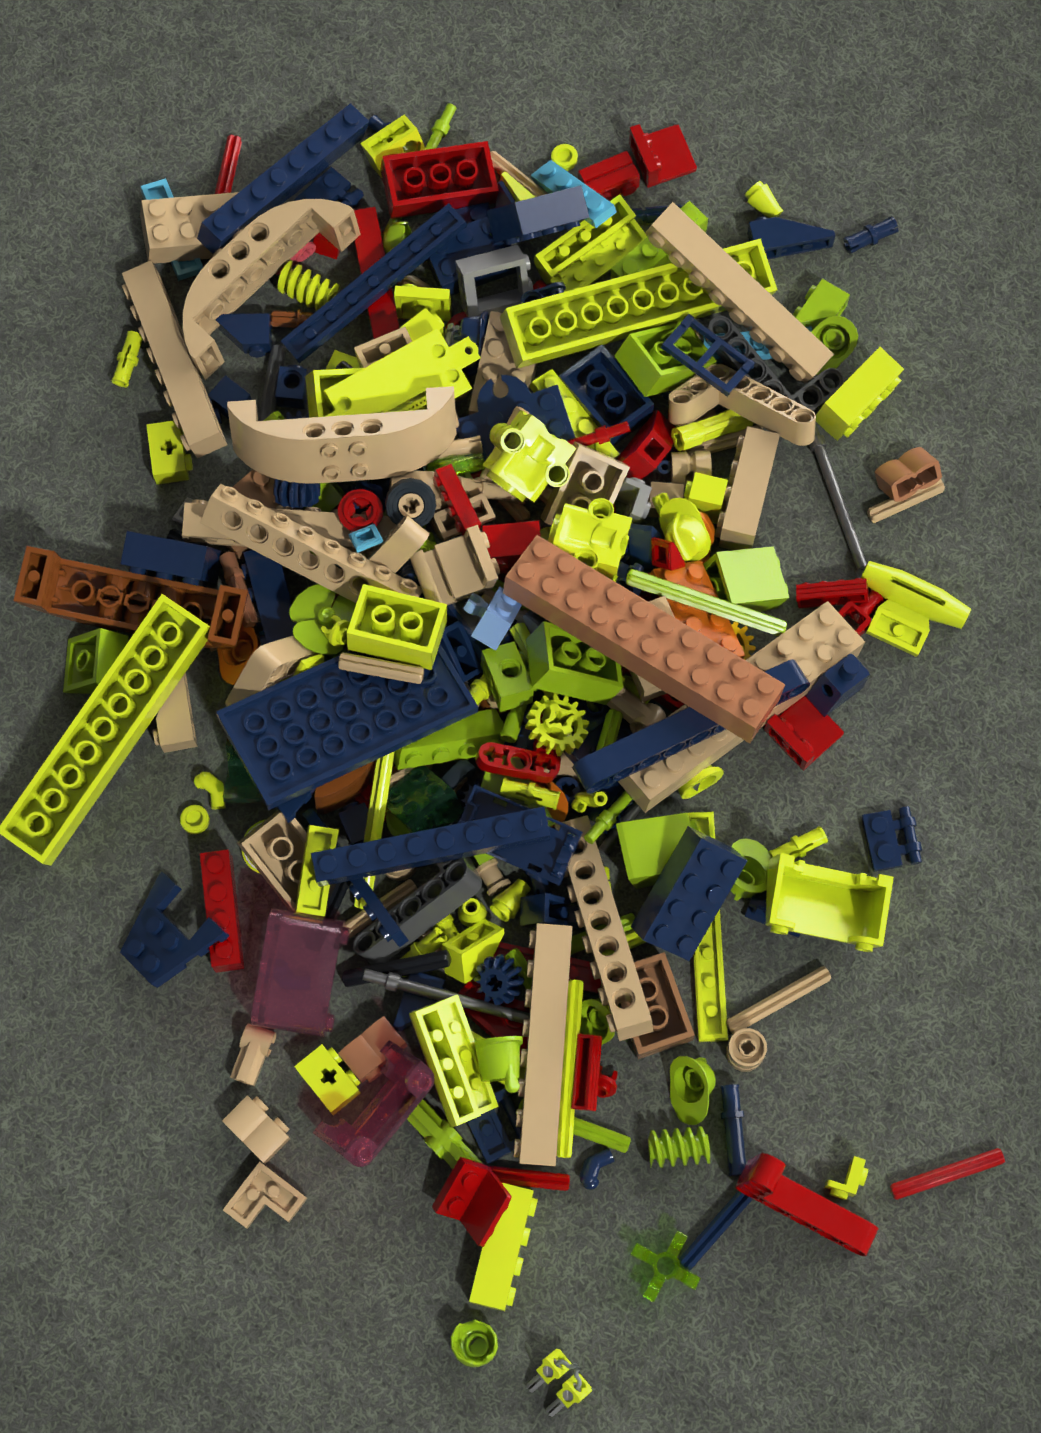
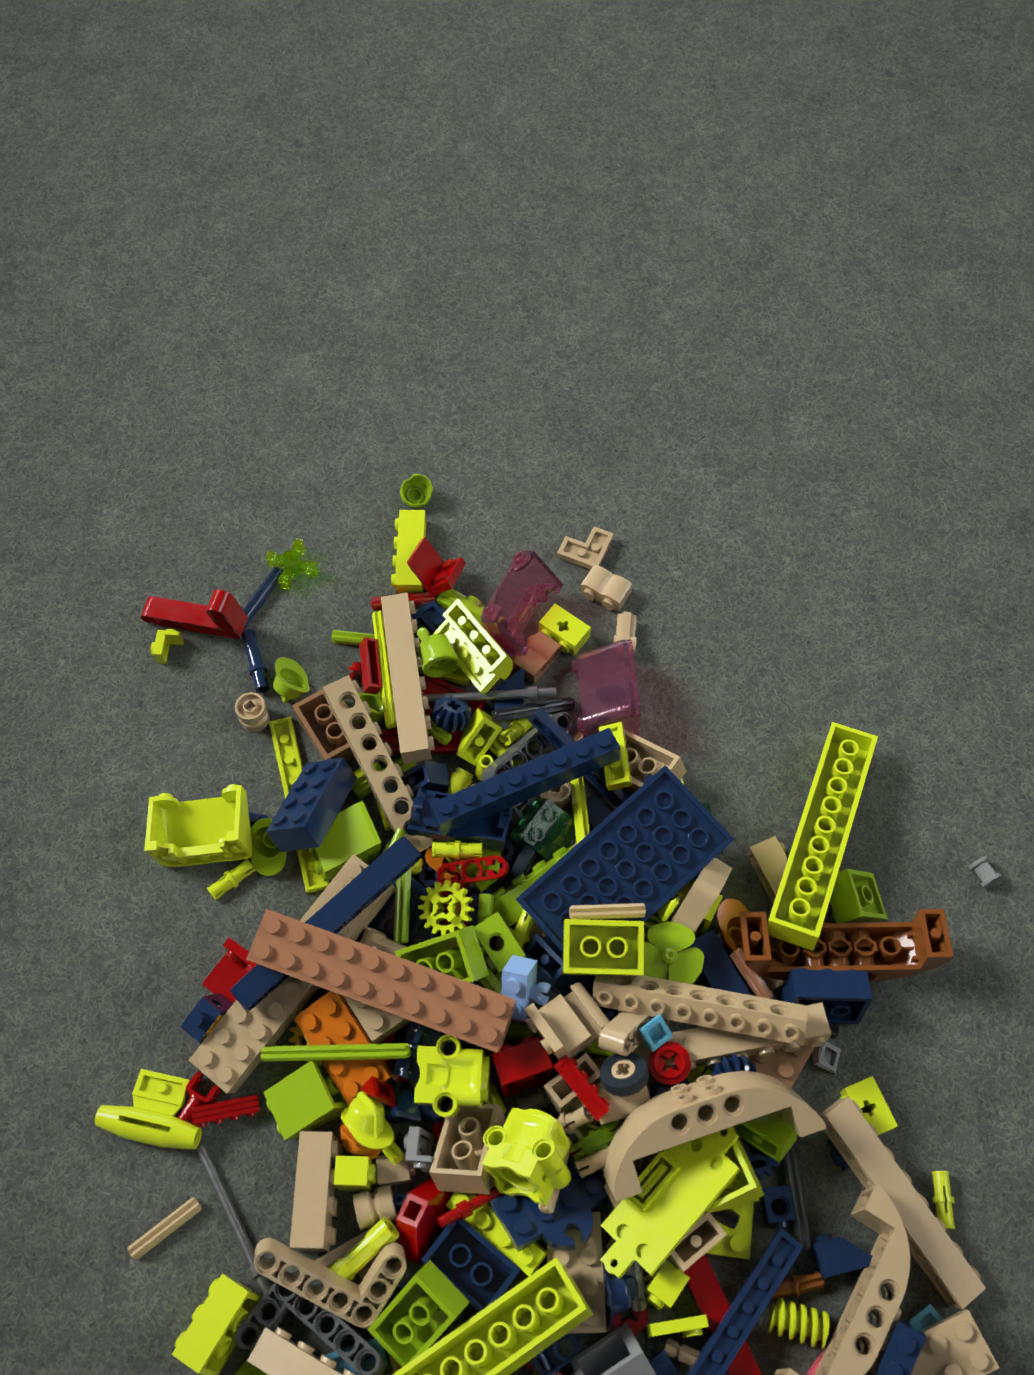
camera: 165 degrees right, 10 degrees down
(158, 945) = (722, 691): dark blue wing -> none
(194, 819) = (727, 795): neon yellow tile -> none
(214, 786) = (728, 823): neon yellow arm -> none
(222, 908) = (681, 726): red brick -> none
(226, 392) = (829, 1177): dark blue brick -> none
(338, 634) = (652, 936): neon yellow plate -> none
(573, 1389) = (359, 486): piece -> none
(591, 1168) = (356, 618): dark blue arm -> none
(678, 1146) = (294, 638): lime piece -> none
(698, 367) = (365, 1341): dark blue window -> none
(778, 999) = (232, 759): tan axle -> none
(882, 839) = (161, 901): dark blue plate -> none
(911, 472) = (163, 1250): nougat brick -> none
(947, 1173) = (91, 666): red axle -> none

